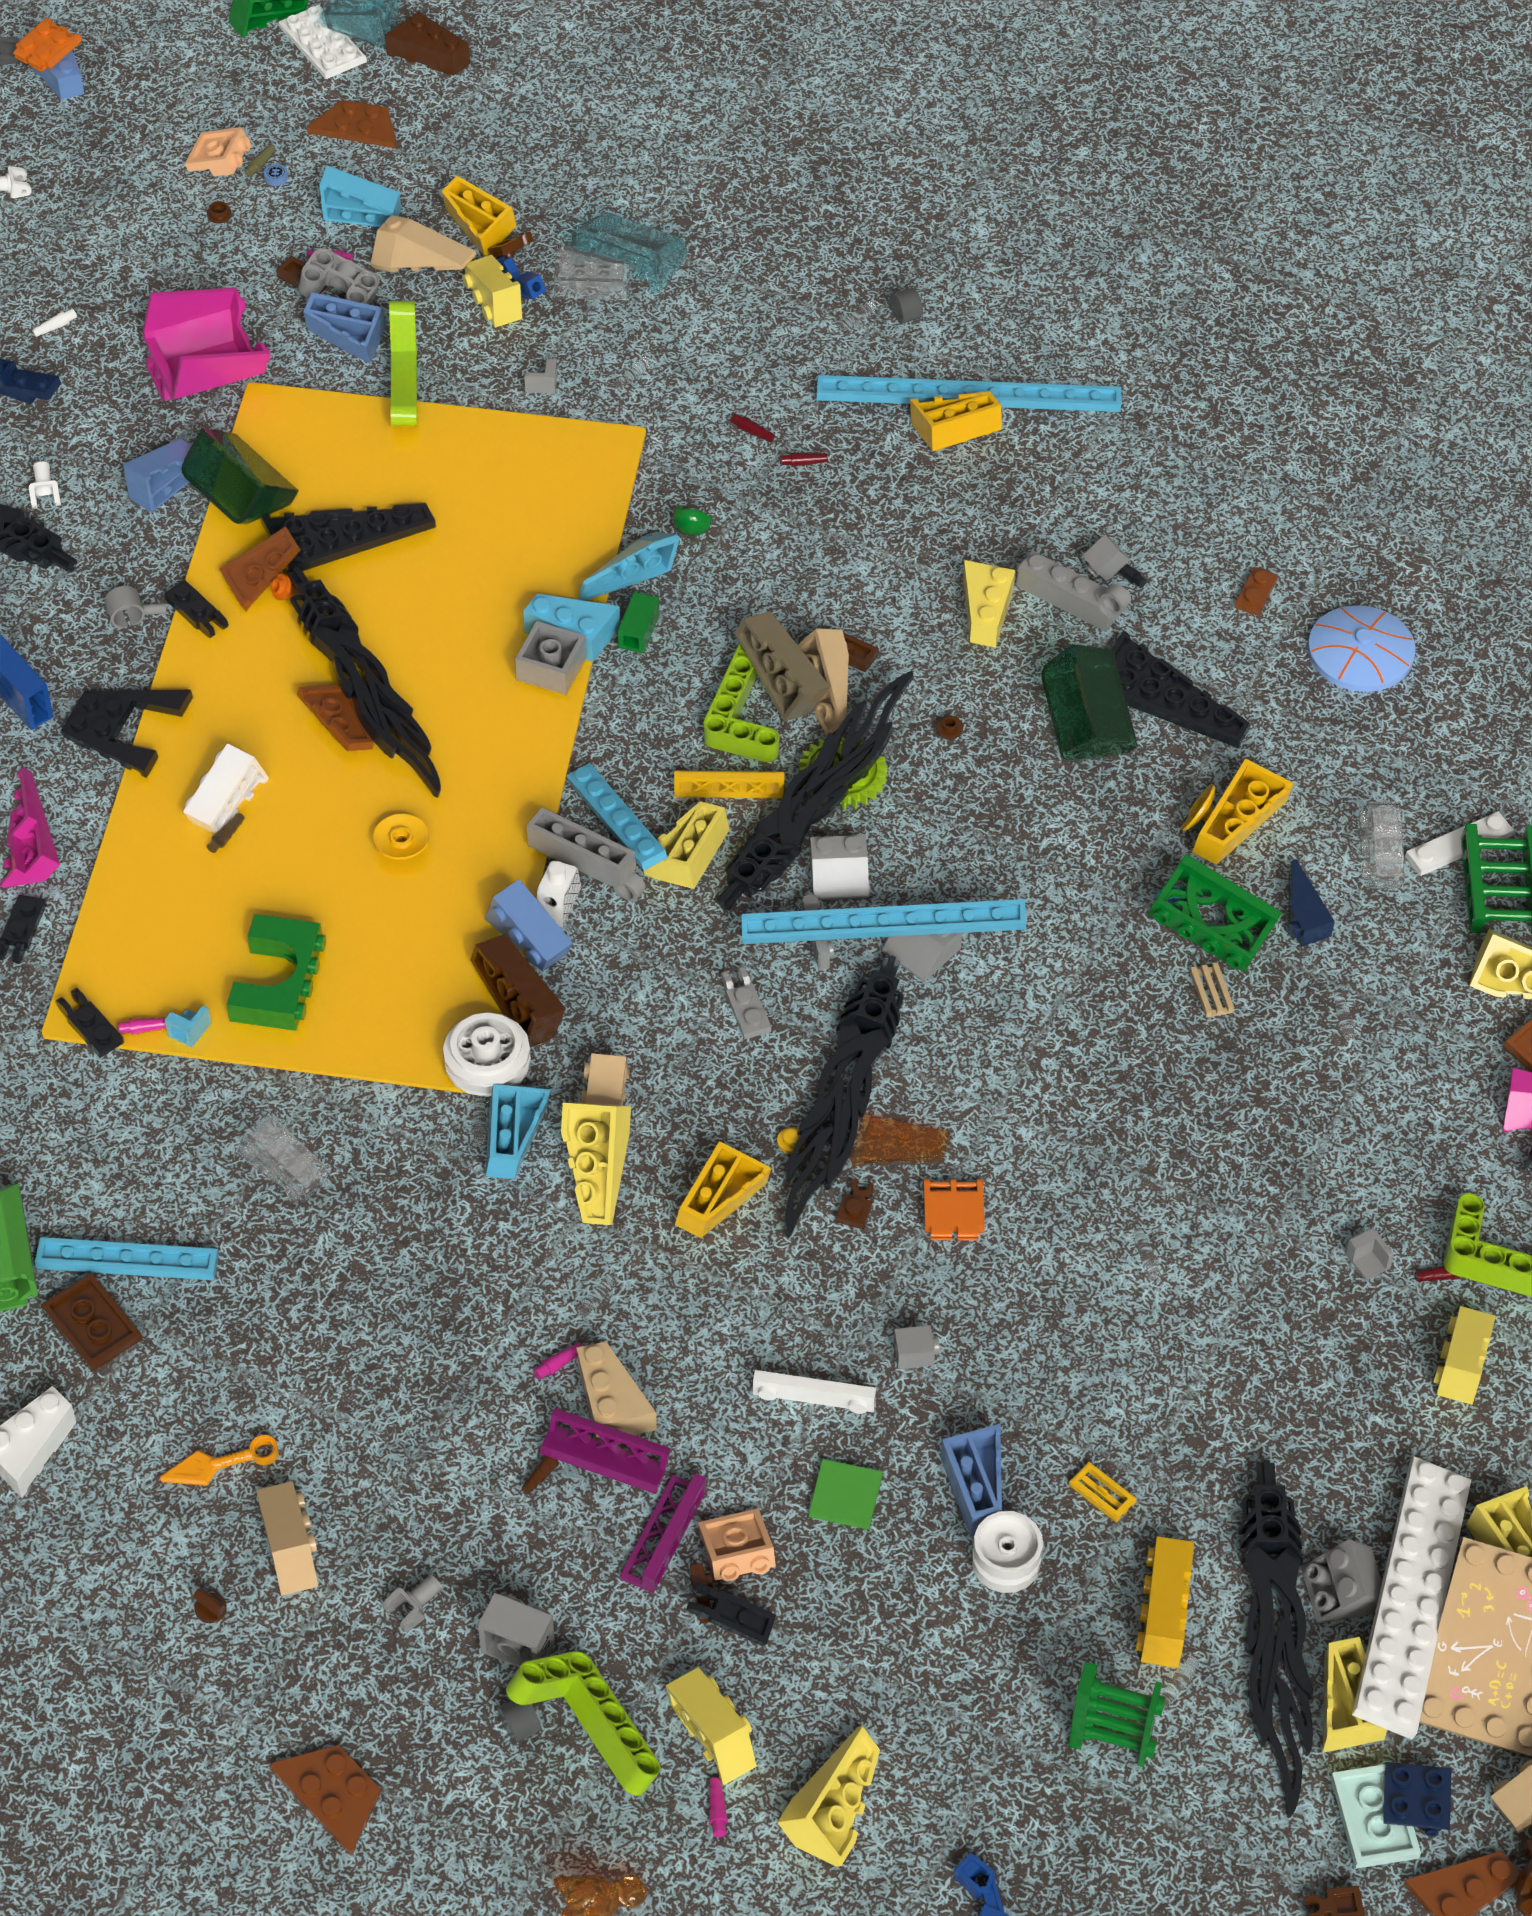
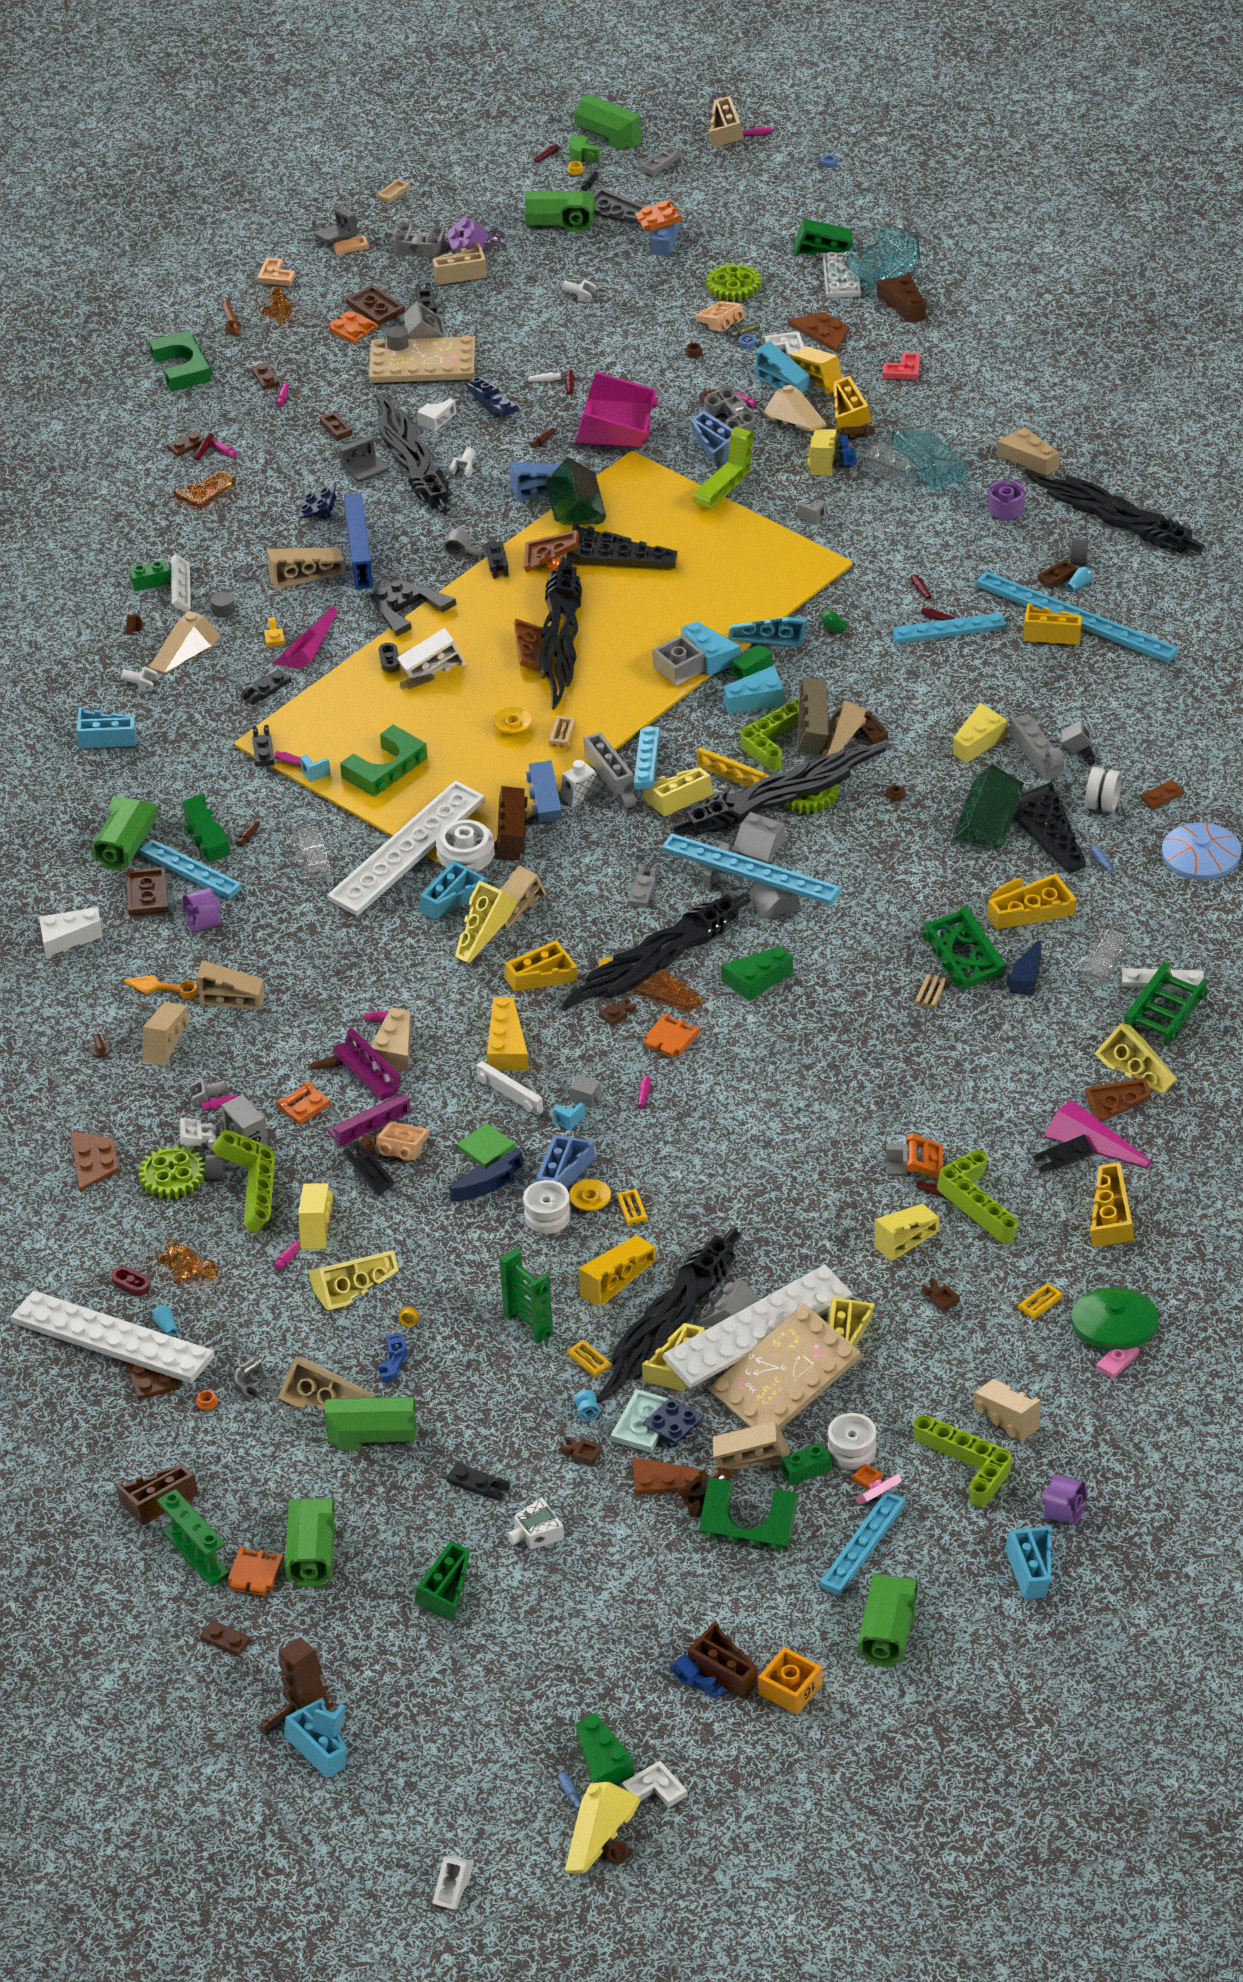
camera: 35 degrees right, 10 degrees down
(91, 316) = (569, 380): none -> dark red animal
(107, 1191) = (203, 829): none -> green wedge
(116, 409) = (539, 440): none -> reddish brown animal
(164, 1166) = (248, 834): none -> reddish brown animal
(168, 818) = (388, 657): none -> black plate
(198, 100) = (733, 282): none -> lime gear
(198, 1318) = (201, 910): none -> medium lavender brick
(327, 1422) = (228, 987): none -> tan wedge
(331, 154) = (787, 341): none -> white plate
(403, 173) = (820, 365): none -> yellow wedge
(403, 1092) = (404, 848): none -> white plate
(440, 1609) = (216, 1102): none -> dark pink animal
(447, 1678) = (194, 1133): none -> white plate
(479, 840) = (560, 741): none -> tan tile
(482, 1775) = (172, 1172): none -> lime gear
(503, 138) = (906, 370): none -> coral plate
(565, 1553) = (306, 1107): none -> orange plate
(673, 661) = (754, 692): none -> medium azure wedge
(742, 193) = (1030, 451): none -> tan wedge
(752, 1315) = (506, 1040): none -> yellow wedge
(767, 269) = (1006, 500): none -> medium lavender brick
(830, 471) = (949, 628): none -> medium azure plate
(892, 1548) = (484, 1181): none -> dark blue slope
(901, 345) = (1057, 574): none -> reddish brown plate
(903, 233) = (1097, 501): none -> black piece
(919, 1395) = (568, 1116): none -> medium azure panel
(933, 340) = (1080, 578): none -> medium azure cone
(953, 1814) = (406, 1320): none -> yellow plate
(979, 1304) = (644, 1089): none -> dark pink animal
(990, 1065) = (757, 972): none -> green wedge
(1047, 1491) = (590, 1194): none -> yellow dish
(1200, 617) = (1103, 789): none -> white wheel
(1225, 1765) = (585, 1364): none -> yellow tile
(1255, 708) = (1099, 855): none -> medium blue animal
(1288, 1831) = (586, 1404): none -> medium azure wheel
(1405, 1228) = (931, 1156): none -> orange plate

